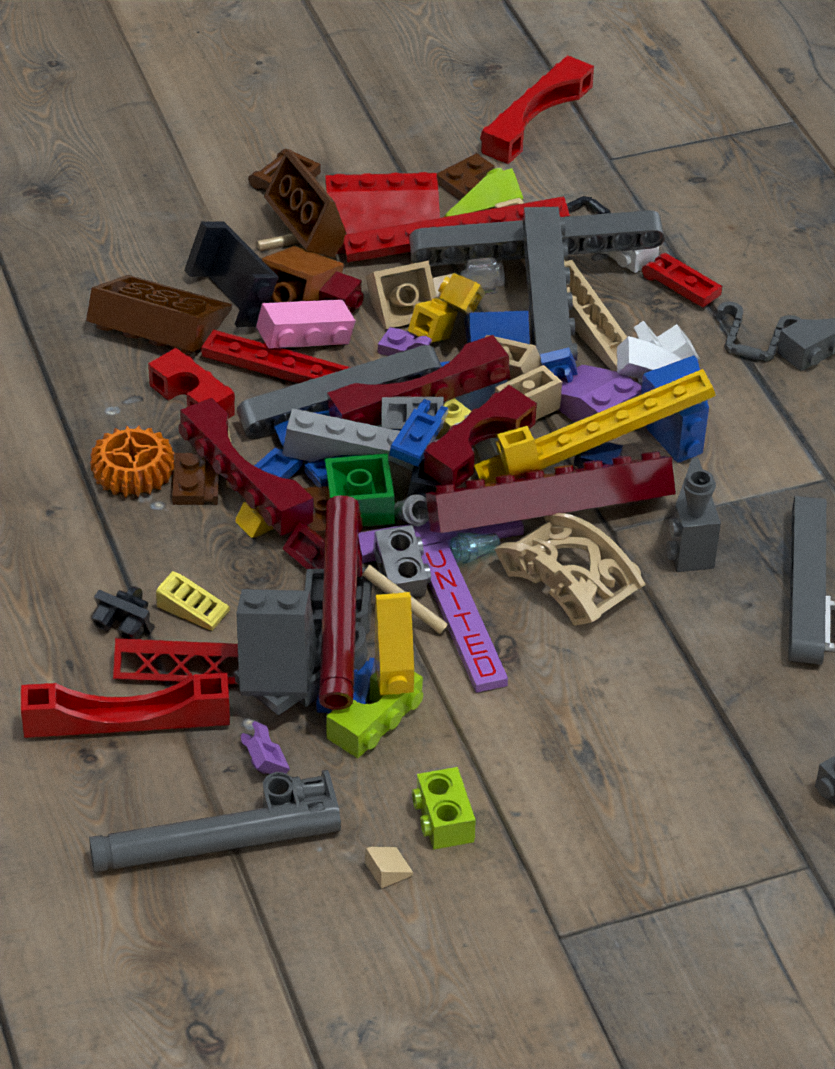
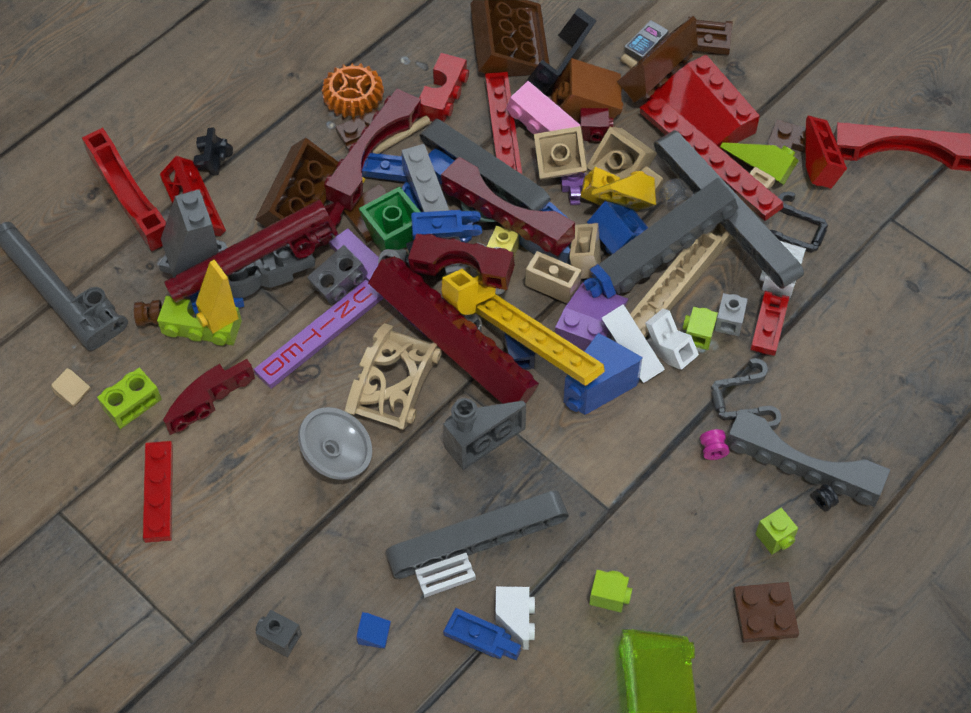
camera: 65 degrees right, 15 degrees up
(176, 588) = (245, 167): light yellow slope -> none
(240, 552) = (297, 182): none -> reddish brown slope
(252, 220) = (645, 40): none -> tile
(265, 754) = (129, 280): medium lavender plate -> none
(330, 750) = (147, 312): none -> reddish brown wheel
(371, 328) = (560, 153): none -> tan slope
(398, 409) = (467, 201): light grey slope -> none
(417, 608) = (301, 292): tan bar -> none
(471, 546) = (385, 311): clear light blue cone -> none
(487, 739) = (198, 398): none -> dark red slope
(527, 160) = (823, 155): none -> red slope
(589, 829) = (158, 492): none -> red plate
(633, 643) = (341, 436): none -> light grey dish
(657, 299) = (731, 314): none -> light grey brick
(659, 317) = (700, 326): none -> lime brick
(803, 371) = (714, 444): none -> dark pink wheel

